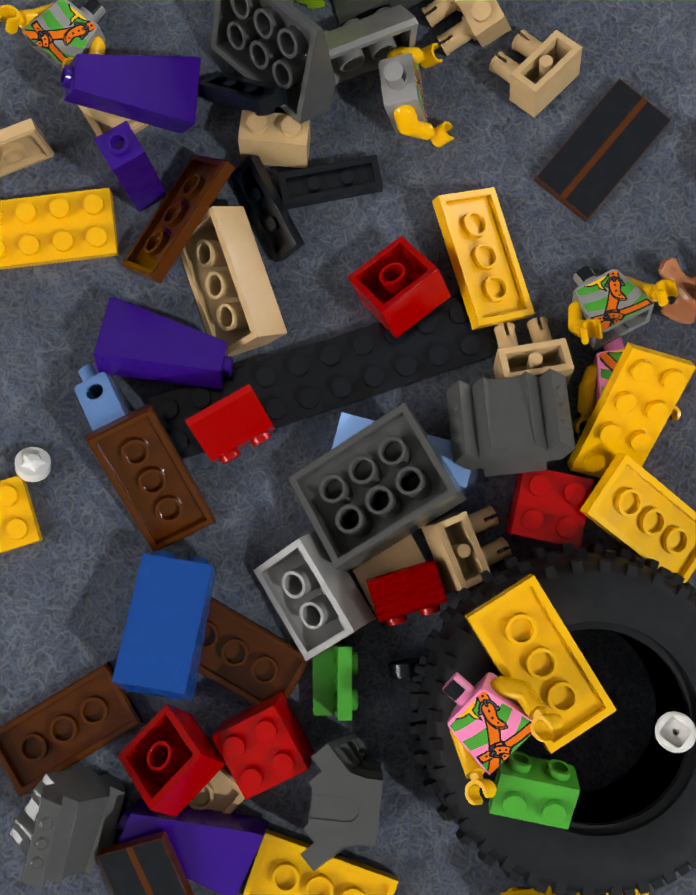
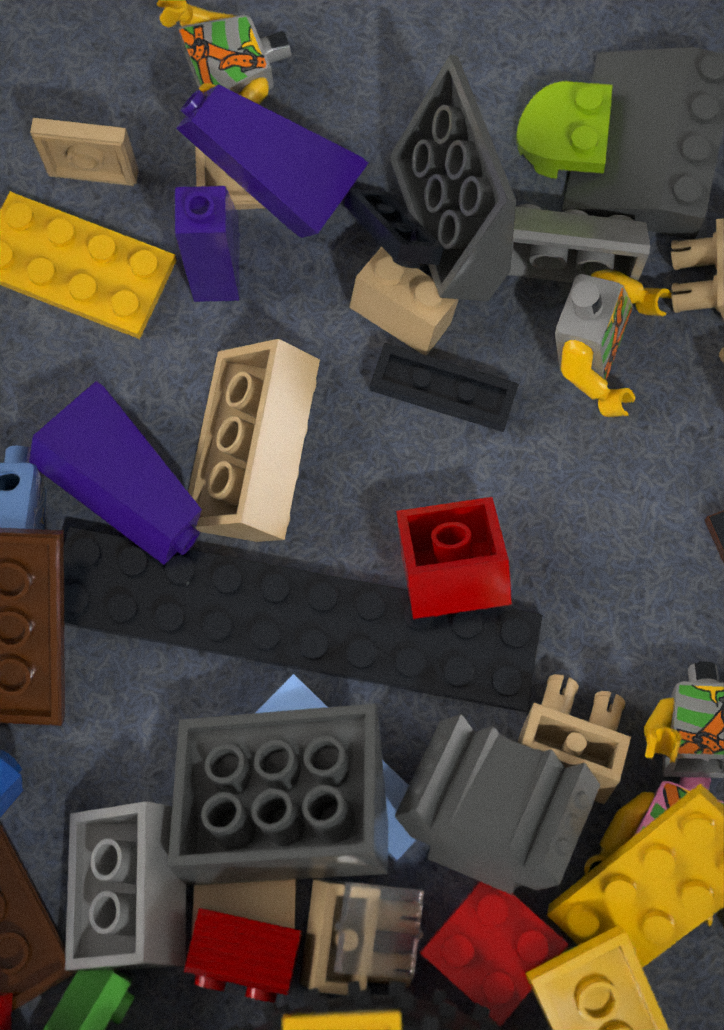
camera: 35 degrees right, 10 degrees down
(177, 217) = (232, 330): reddish brown tile -> none
(231, 425) = (146, 613): red slope -> none
(266, 208) = (347, 378): black plate -> none
(479, 534) = (379, 930): none -> clear piece
(483, 257) = (582, 581): yellow plate -> none

